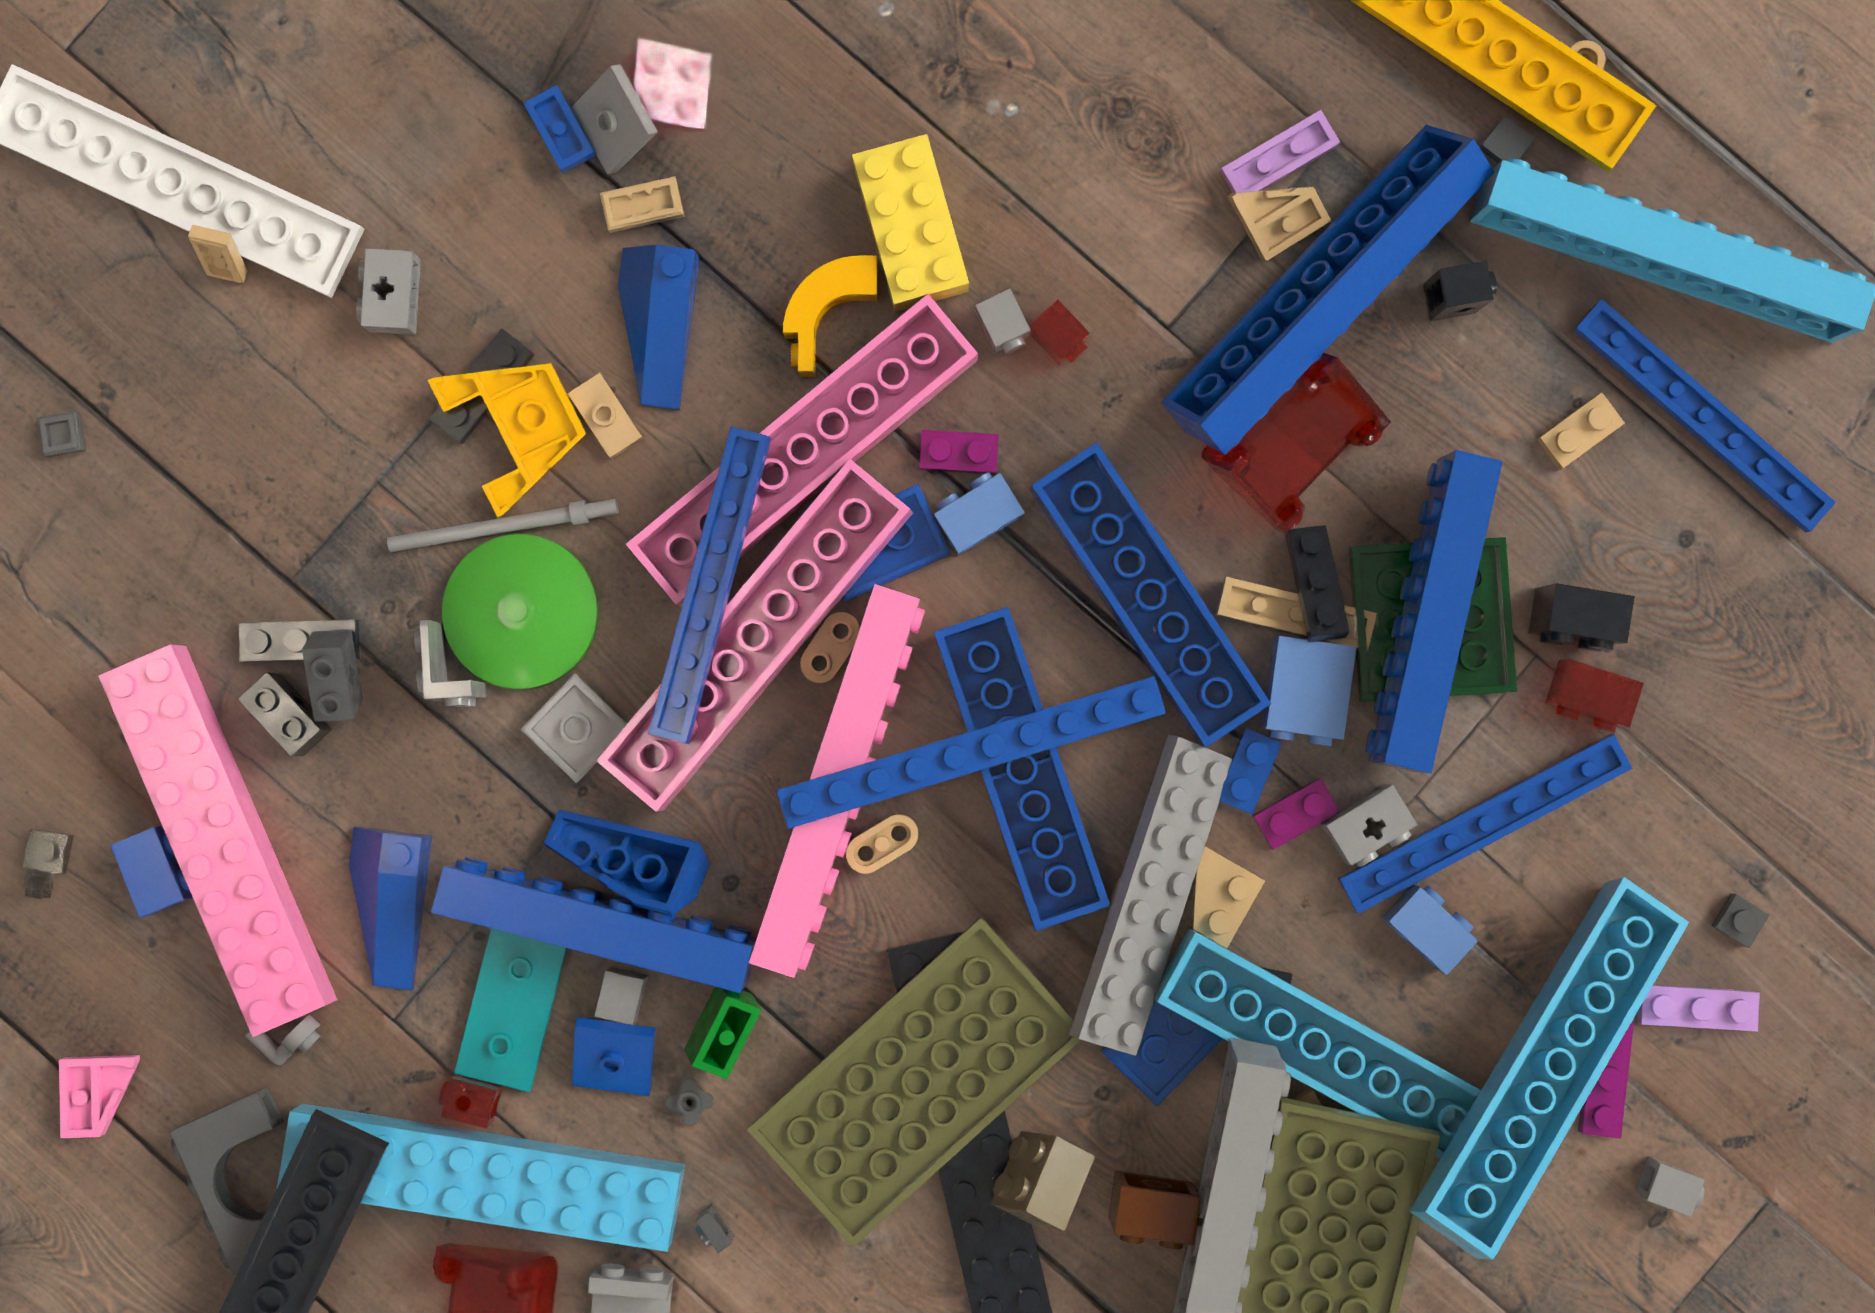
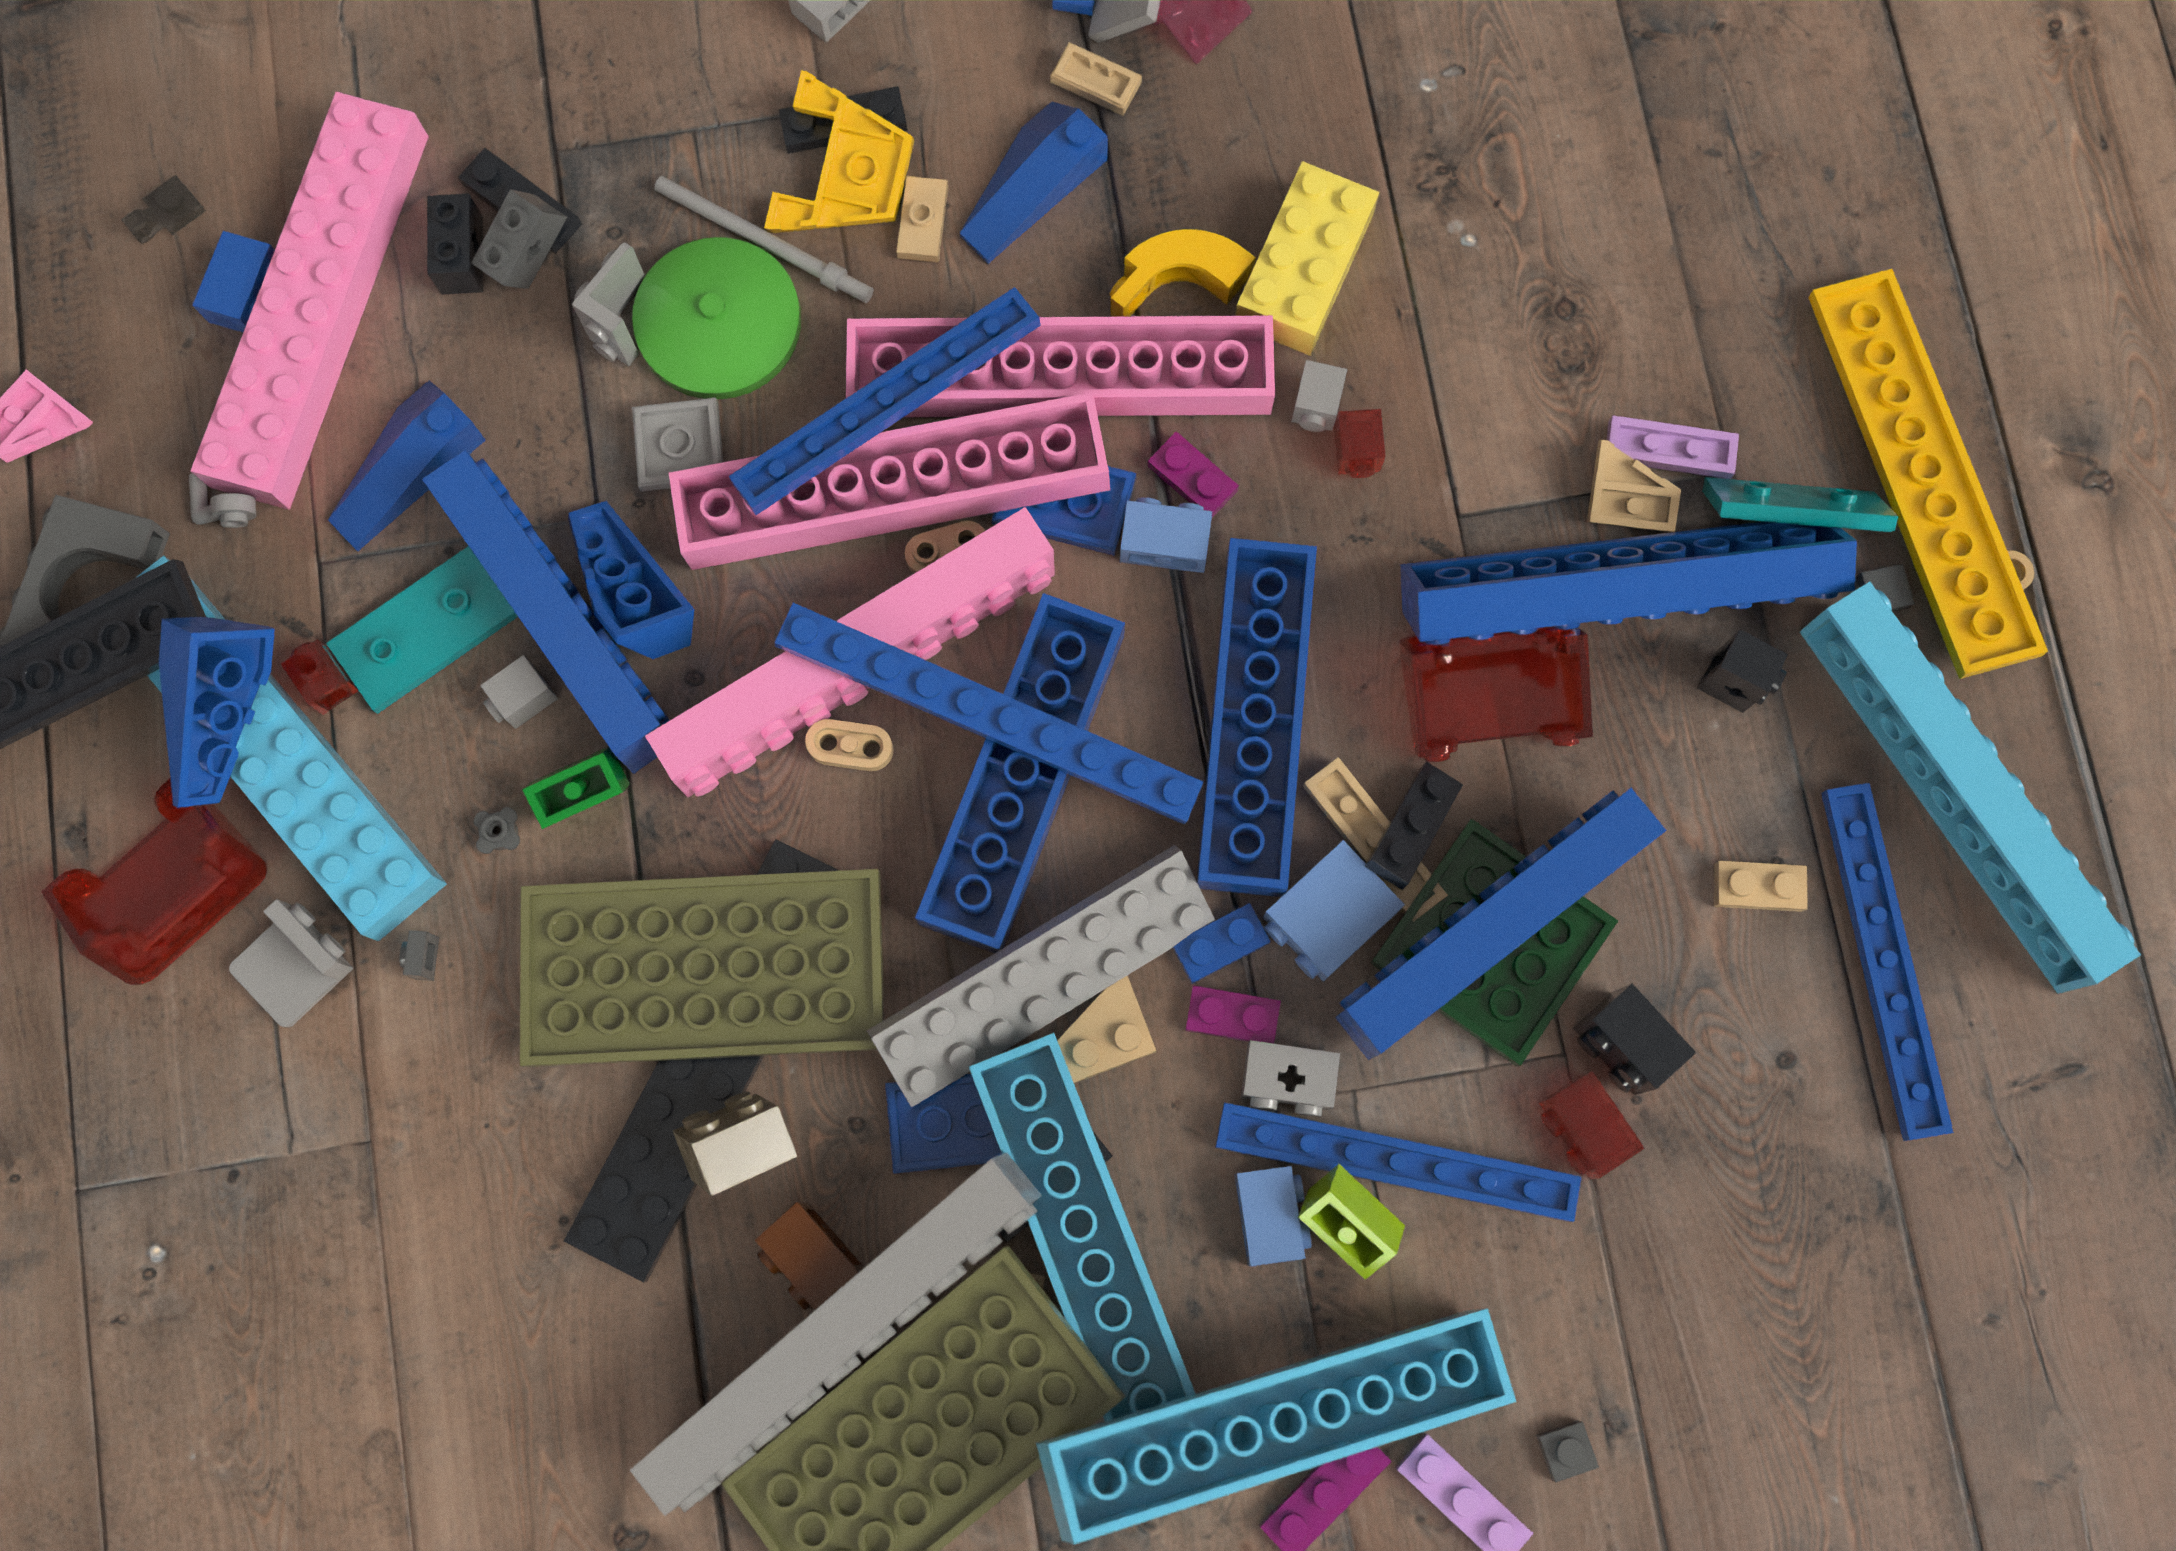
camera: 45 degrees right, 10 degrees down
(417, 1181) = (208, 691): none -> blue wedge
(613, 1056) = (467, 735): blue plate -> none
(1404, 132) = (1799, 504): none -> teal plate
(1489, 890) = (1352, 1221): none -> lime brick

